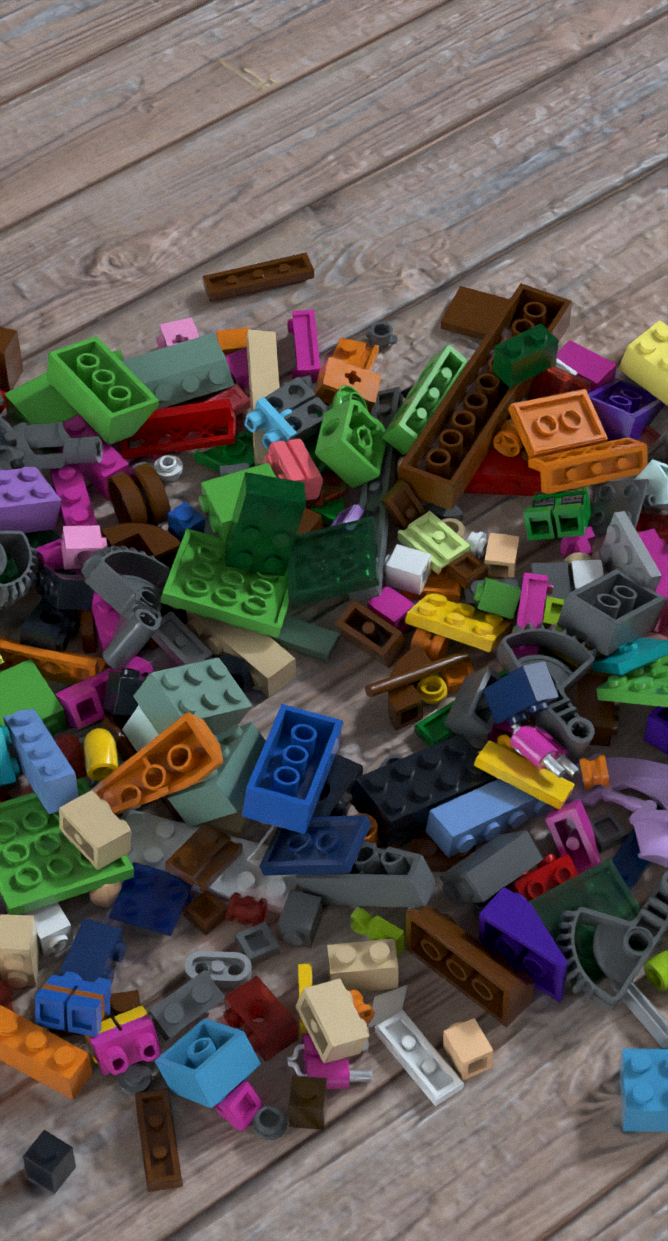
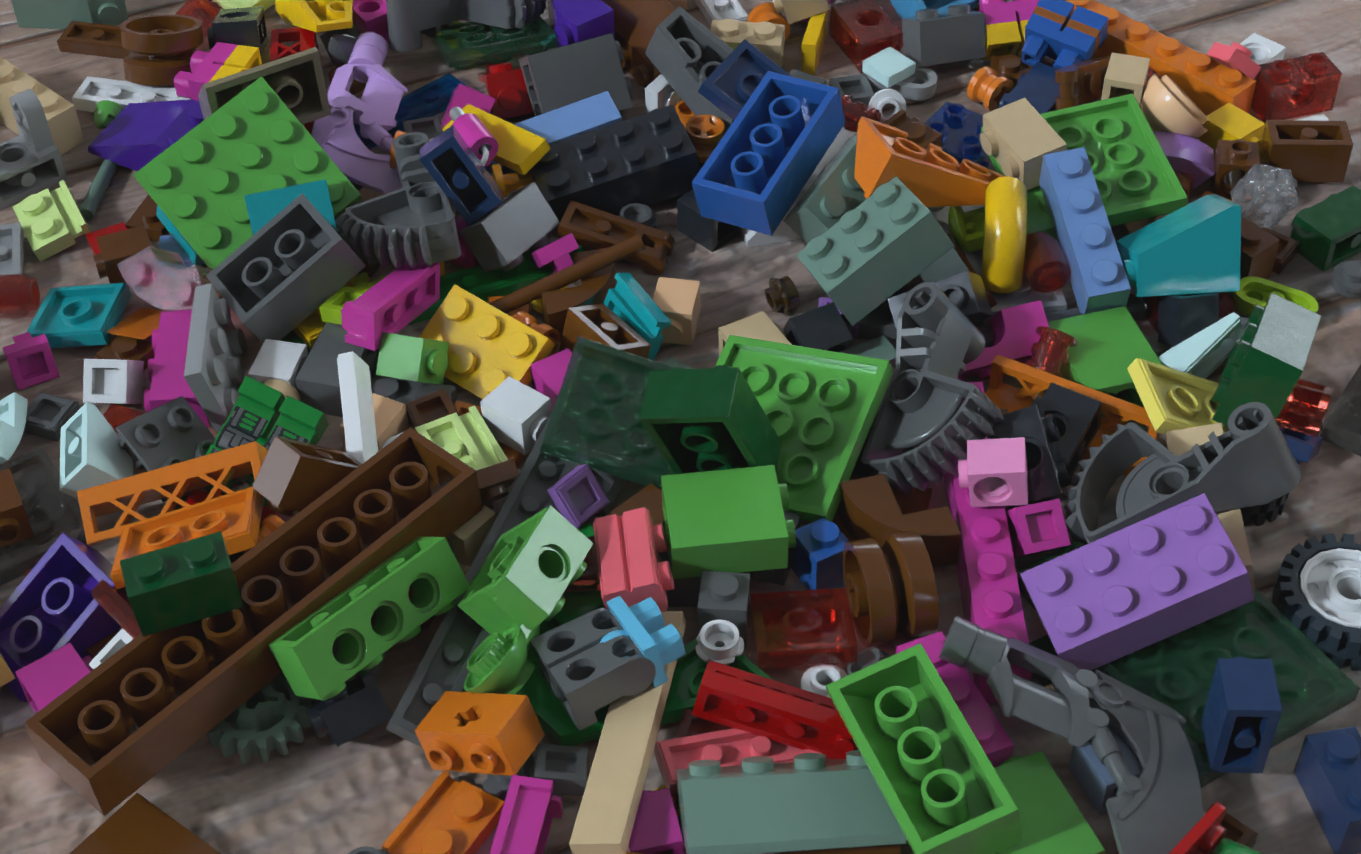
camera: 165 degrees left, 5 degrees down
(52, 960) = (1081, 82): none -> reddish brown plate
(57, 686) = (1051, 350): none -> clear red bush
(135, 968) = (988, 88): none -> orange wheel
(184, 478) = (803, 628): none -> clear red plate
(222, 929) = (884, 97): none -> white plate
(228, 959) = (889, 67): none -> light aqua tile
(231, 454) = (723, 634): none -> white plate
(262, 720) = (782, 295): none -> dark brown plate
(335, 687) = (681, 304): none -> light nougat brick
(351, 658) = (637, 310): none -> teal plate
(399, 738) = (602, 230): none -> reddish brown plate
(436, 697) = (556, 253): none -> dark pink tile
(494, 516) = (357, 407): none -> white tile
(503, 465) = (300, 473): none -> reddish brown brick

